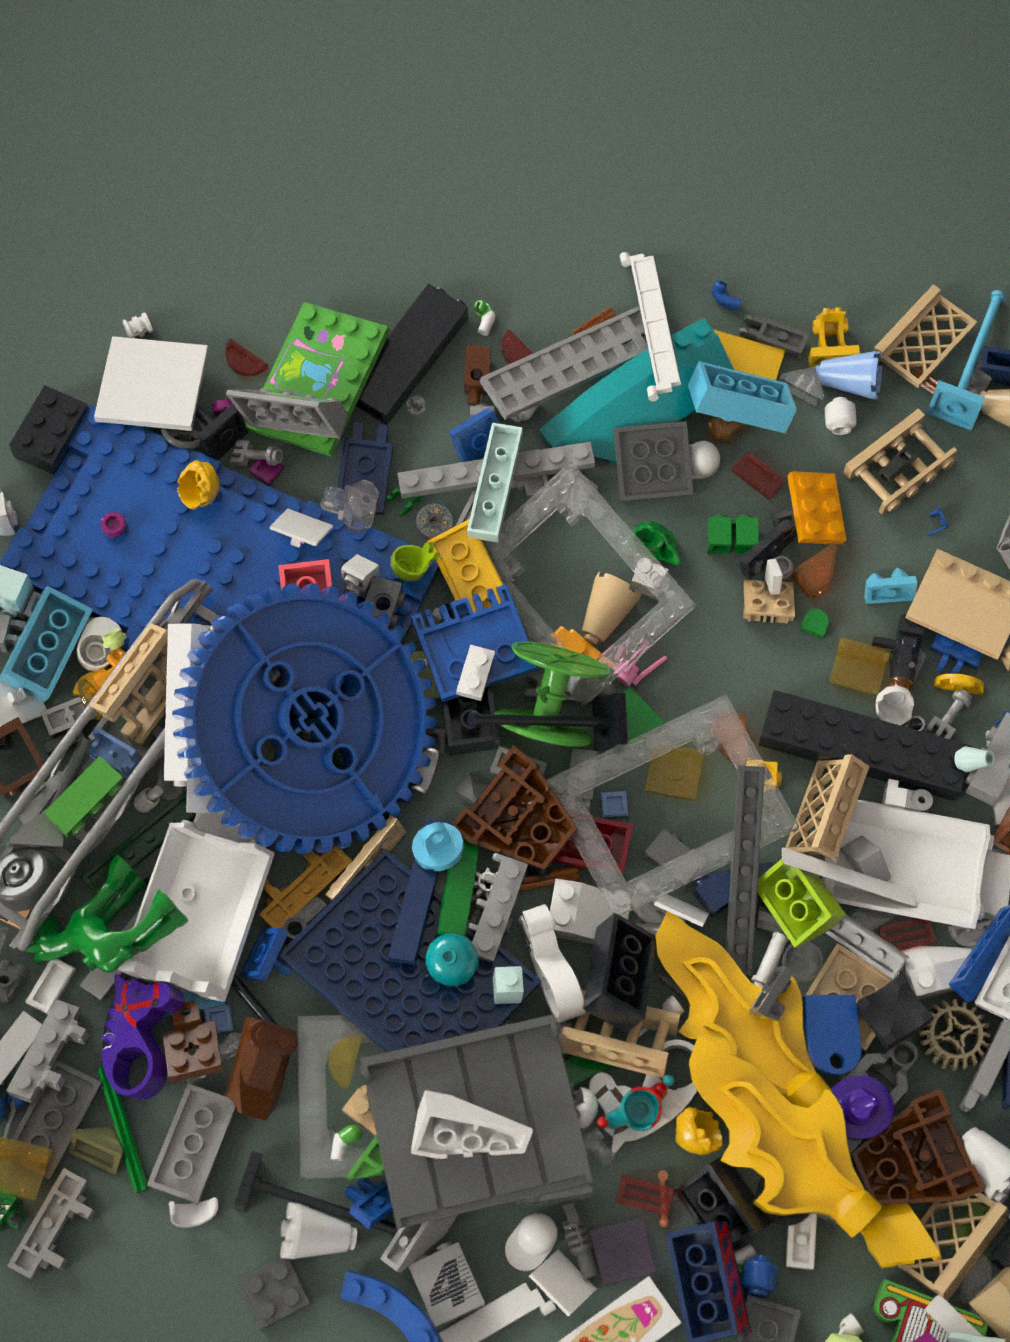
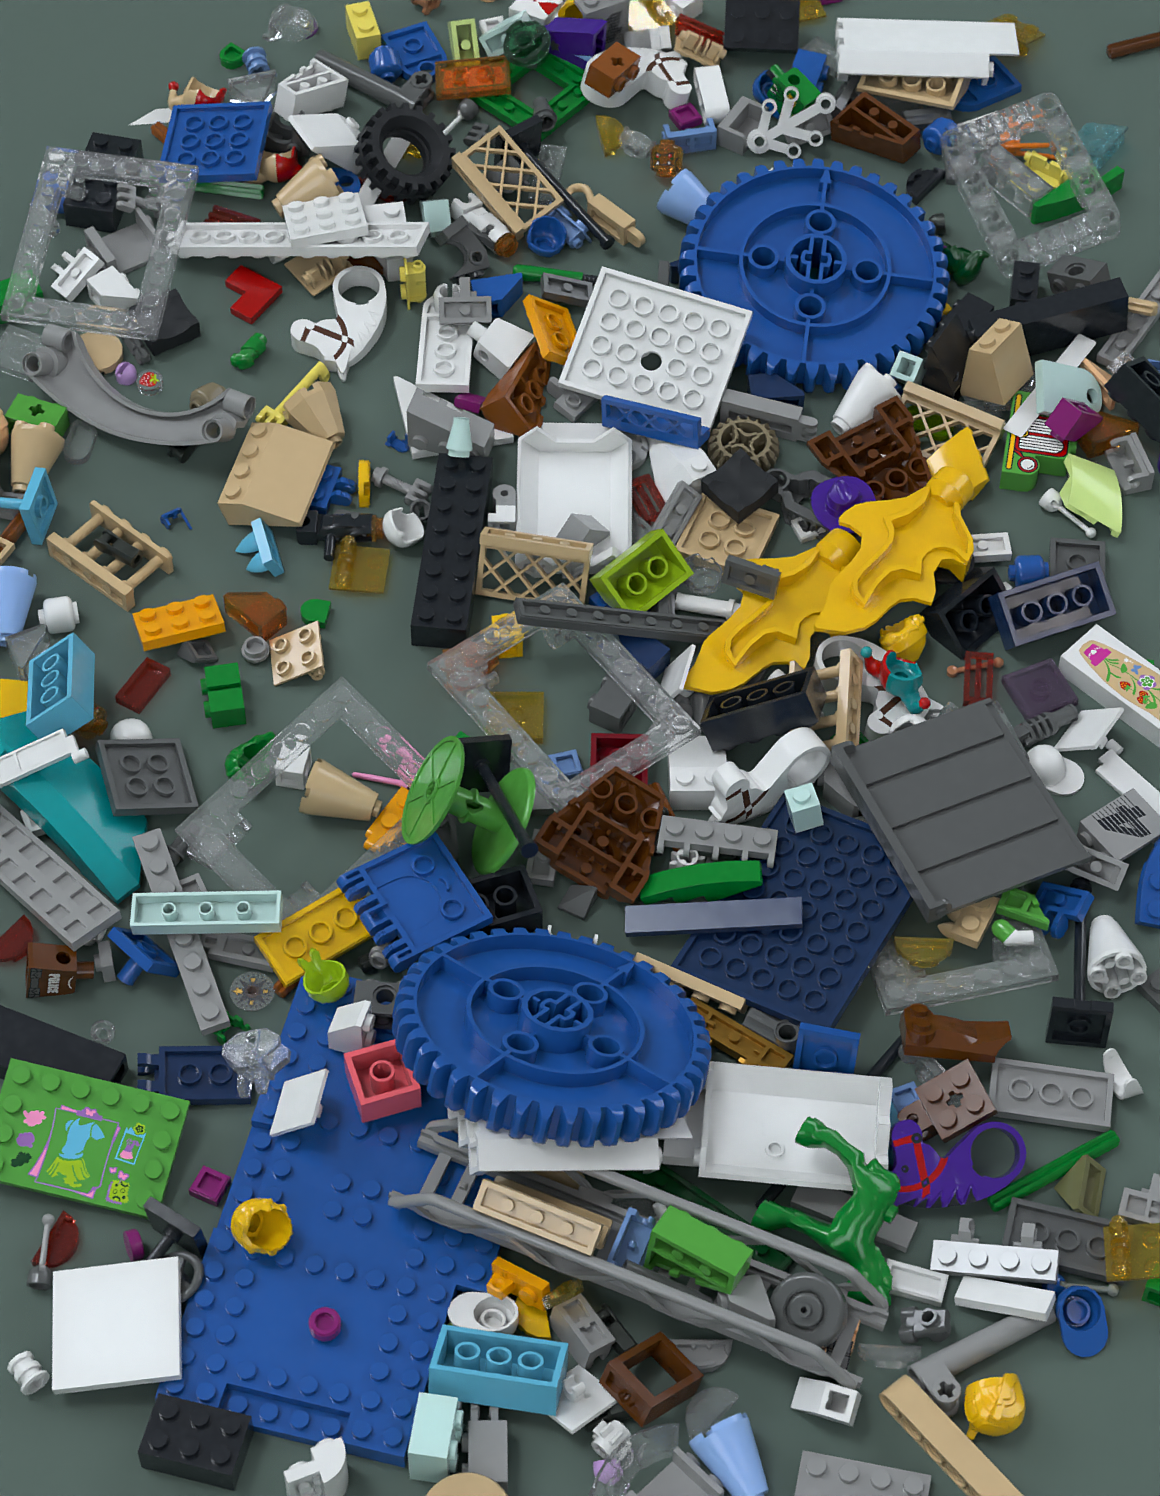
camera: 100 degrees left, 15 degrees down
(114, 639) = (479, 1288): yellowish green plate -> none
(215, 343) = (40, 1276): none -> hinge
(245, 452) = (193, 1210): light grey hinge -> none
(290, 412) = (145, 1135): light grey slope -> none
(438, 846) = (662, 903): medium azure tile -> none
(452, 959) = (789, 862): teal cylinder -> none
(458, 1127) = (973, 808): white wedge -> none
(475, 672) = (456, 885): white plate -> none
(766, 549) = (237, 653): black hinge -> none
(773, 576) = (274, 645): white tile -> none
(832, 1030) = (772, 536): blue tile -> none
(848, 876) = (607, 536): white sticker -> none

